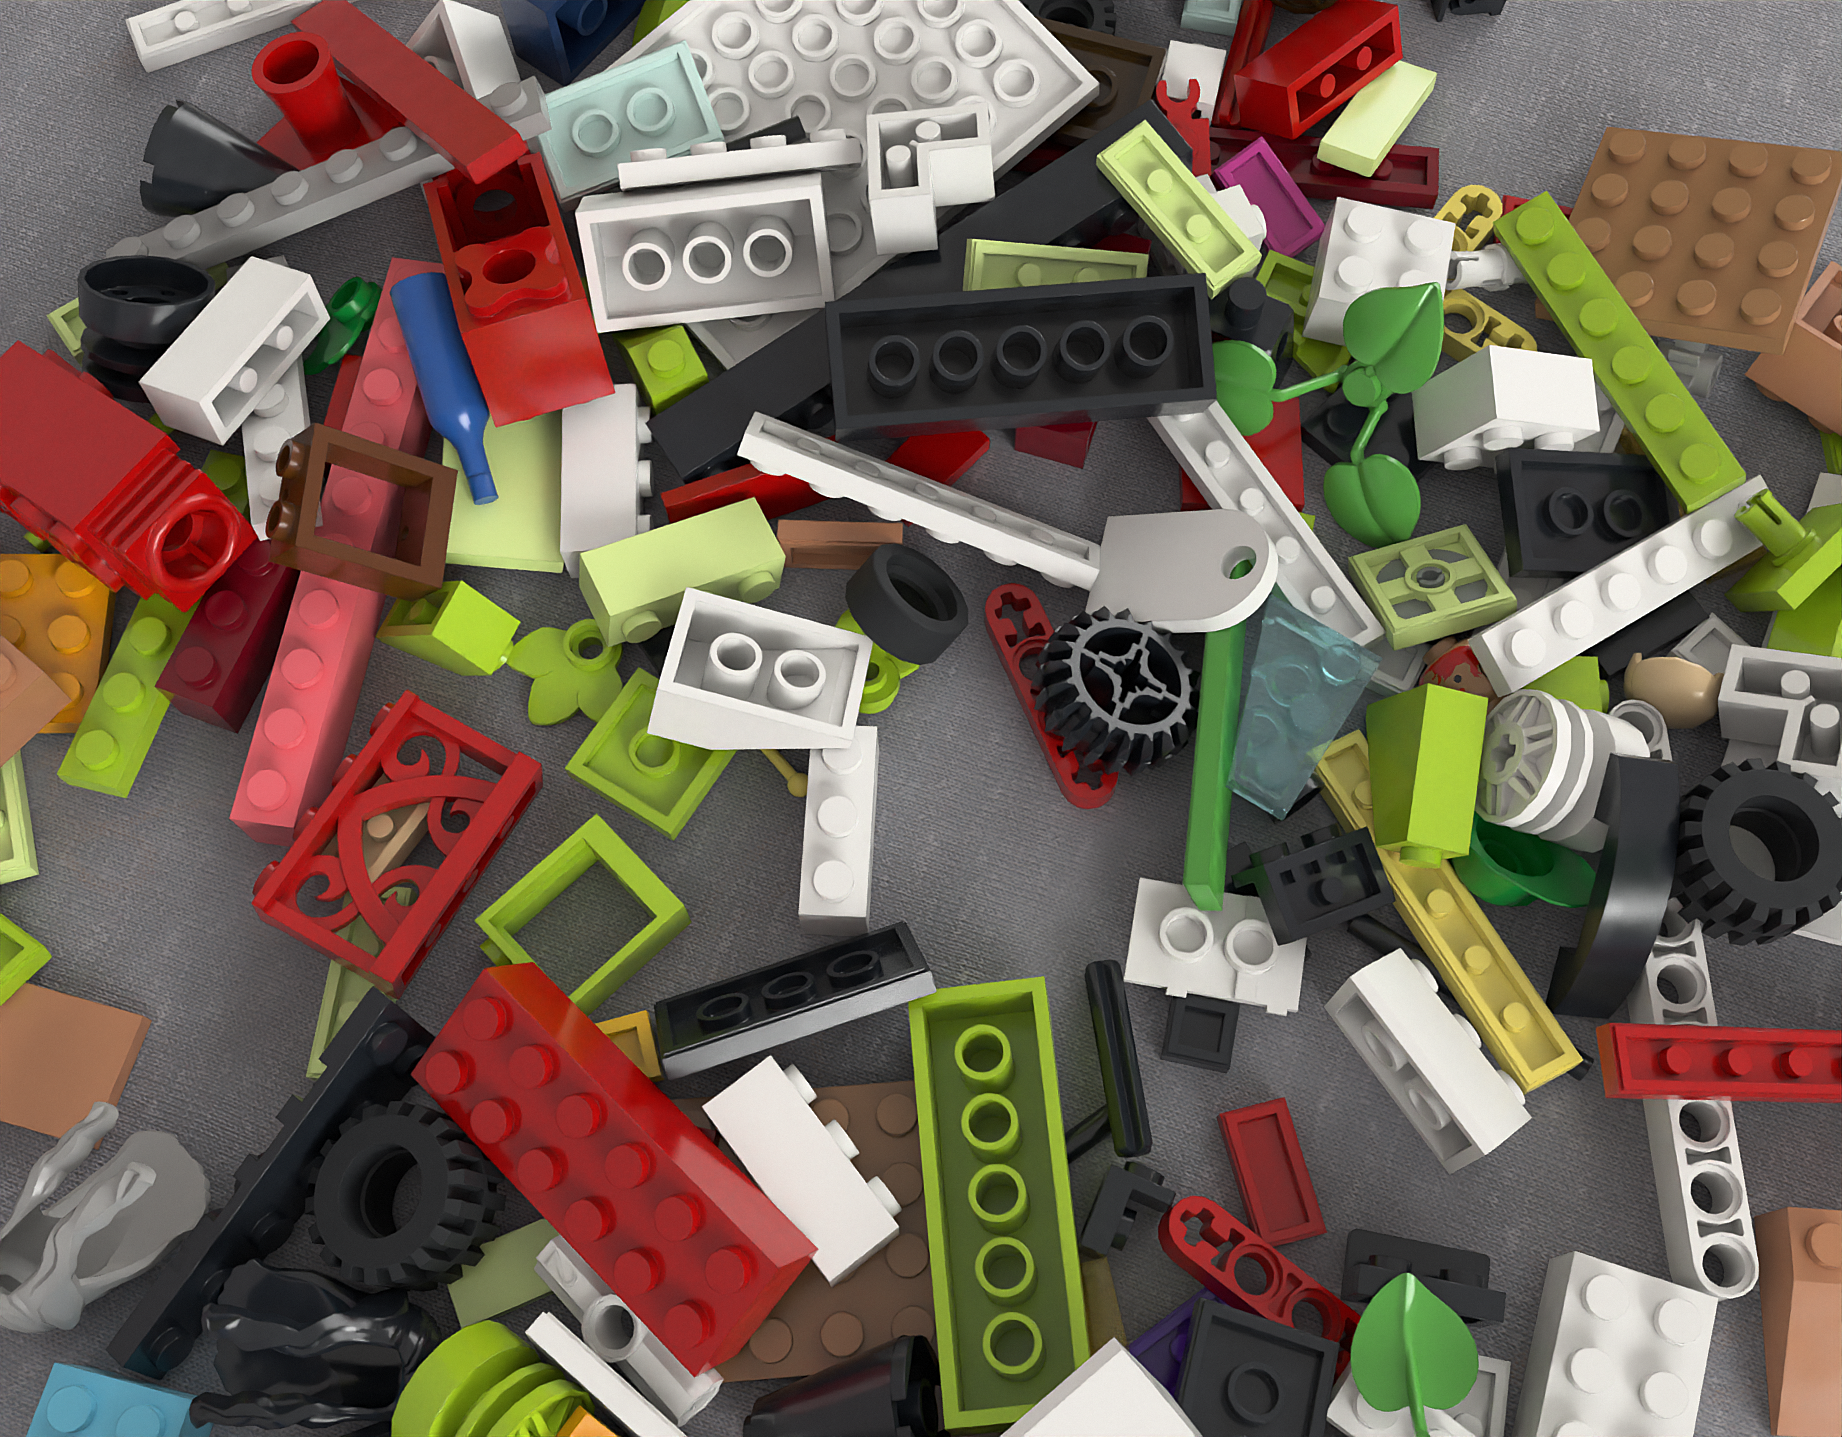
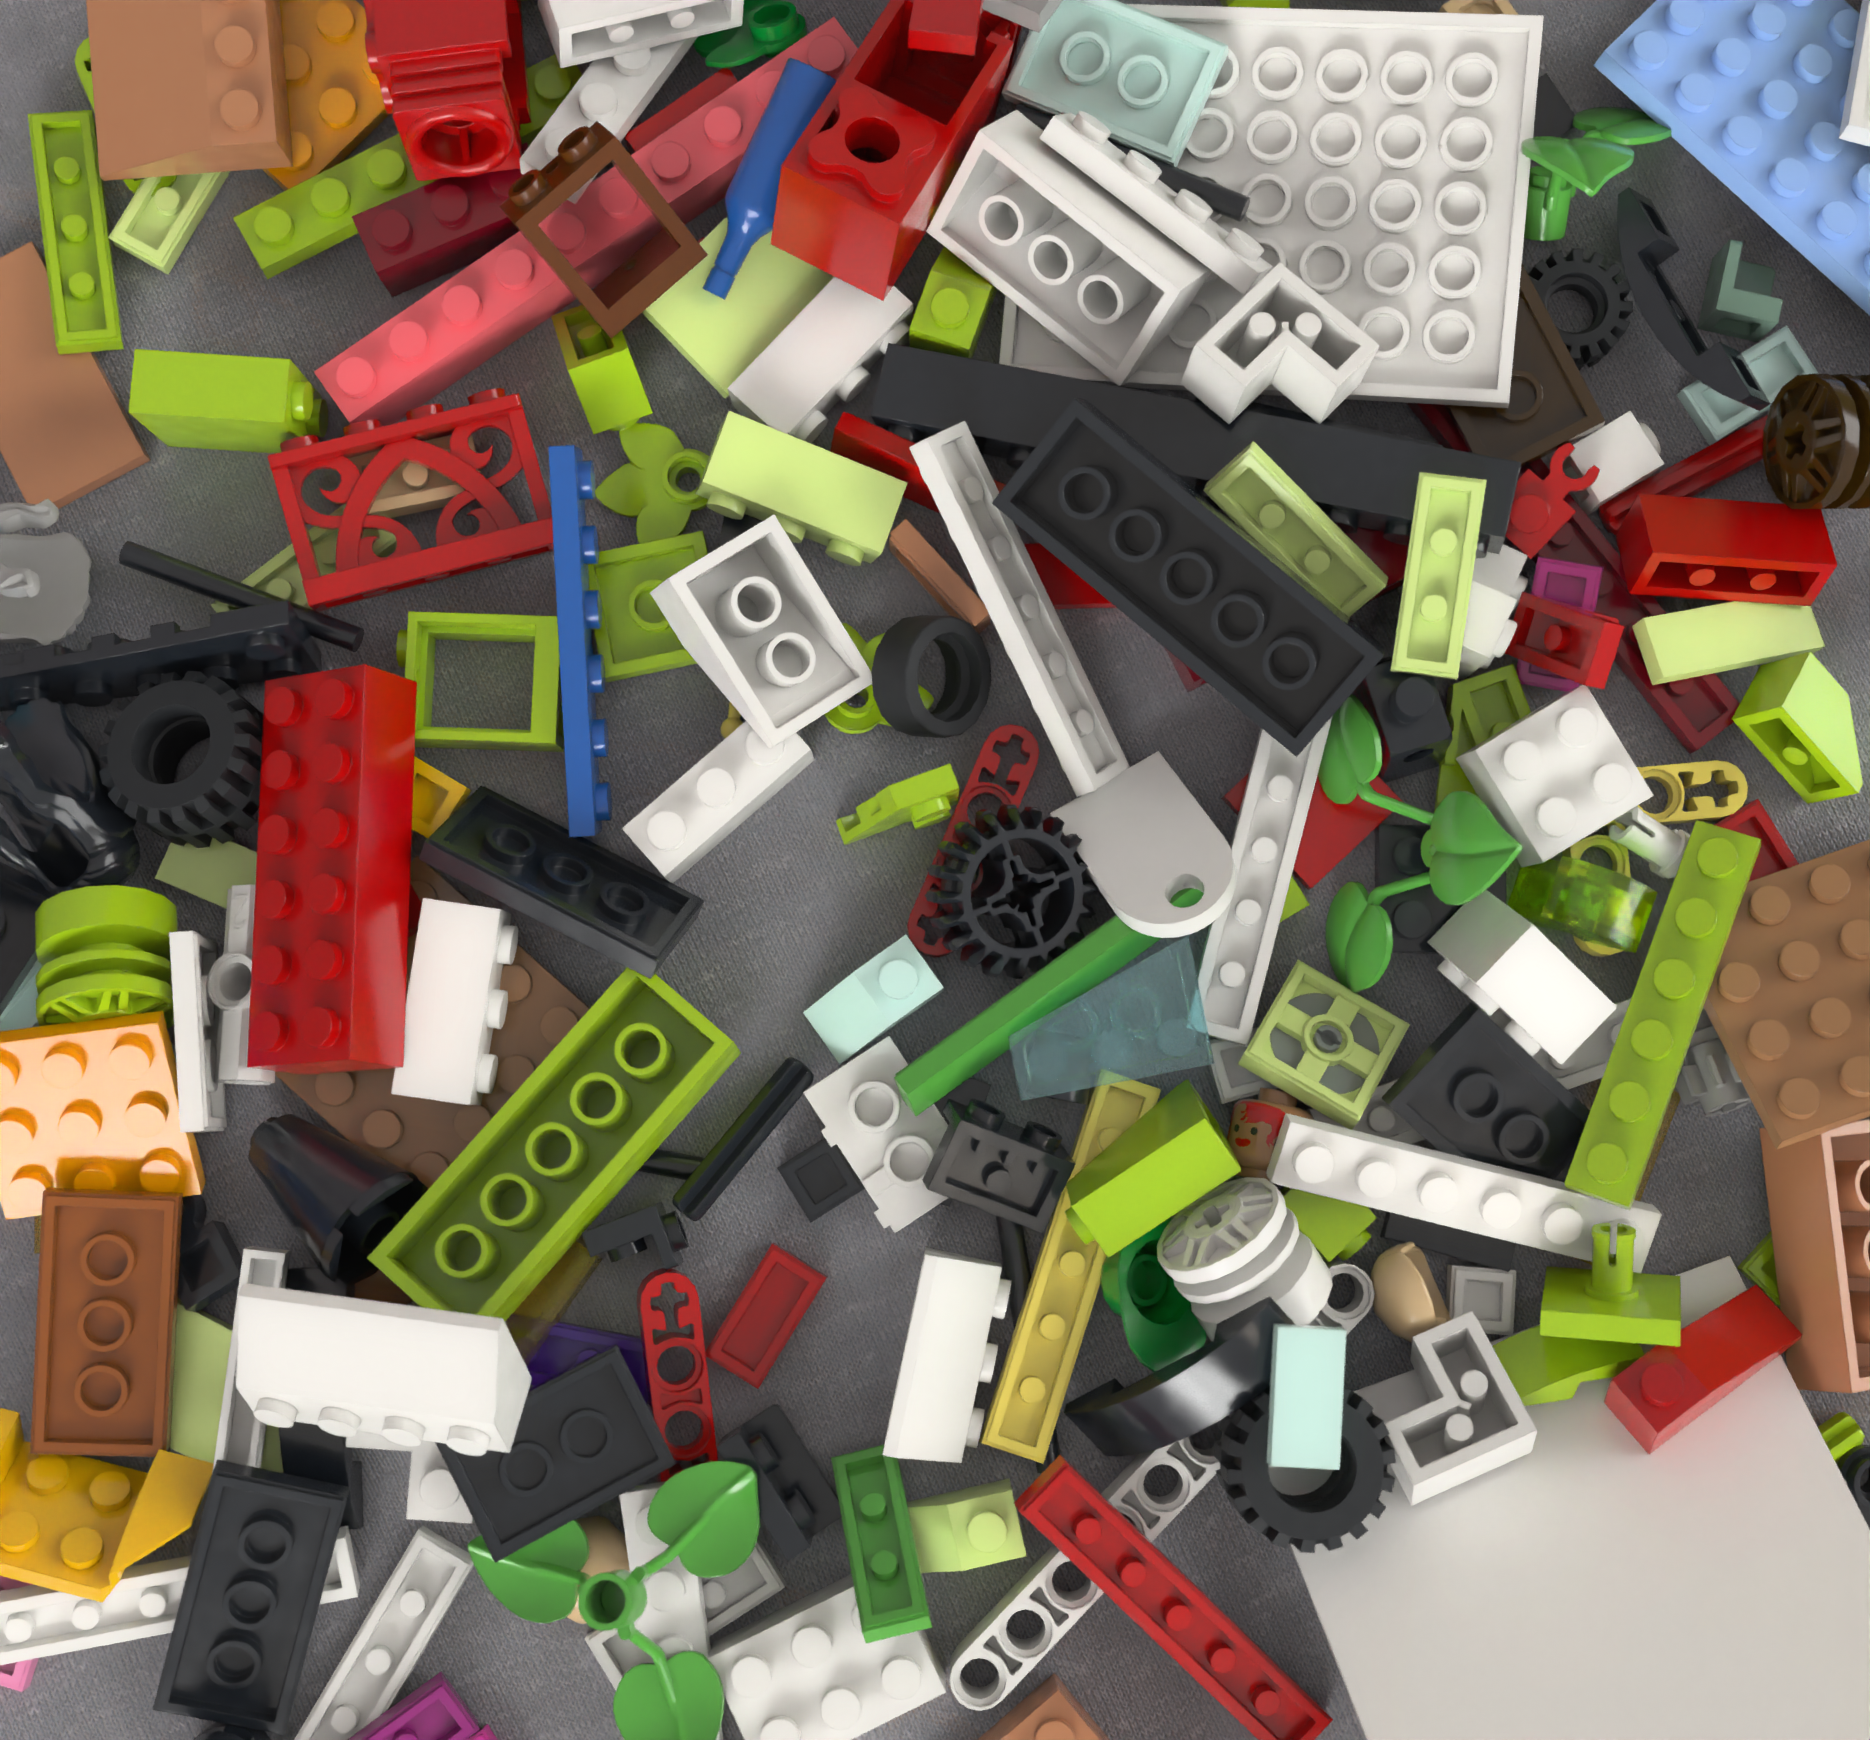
camera: 45 degrees right, 15 degrees up
(174, 905) = (224, 400): none -> lime brick
(309, 1049) = (234, 592): none -> black bar
(608, 795) = (577, 614): none -> blue plate
(985, 697) = (919, 799): none -> lime wing
(1102, 862) = (873, 999): none -> light aqua slope
(1299, 186) = (1565, 639): none -> red slope
(1484, 123) = (1803, 727): none -> lime slope
(1494, 317) = (1584, 901): none -> clear neon green brick
(1549, 1238) = (880, 1544): none -> bright green tile
(1579, 1177) = (967, 1528): none -> yellowish green slope
(1717, 789) = (1306, 1396): none -> light aqua tile

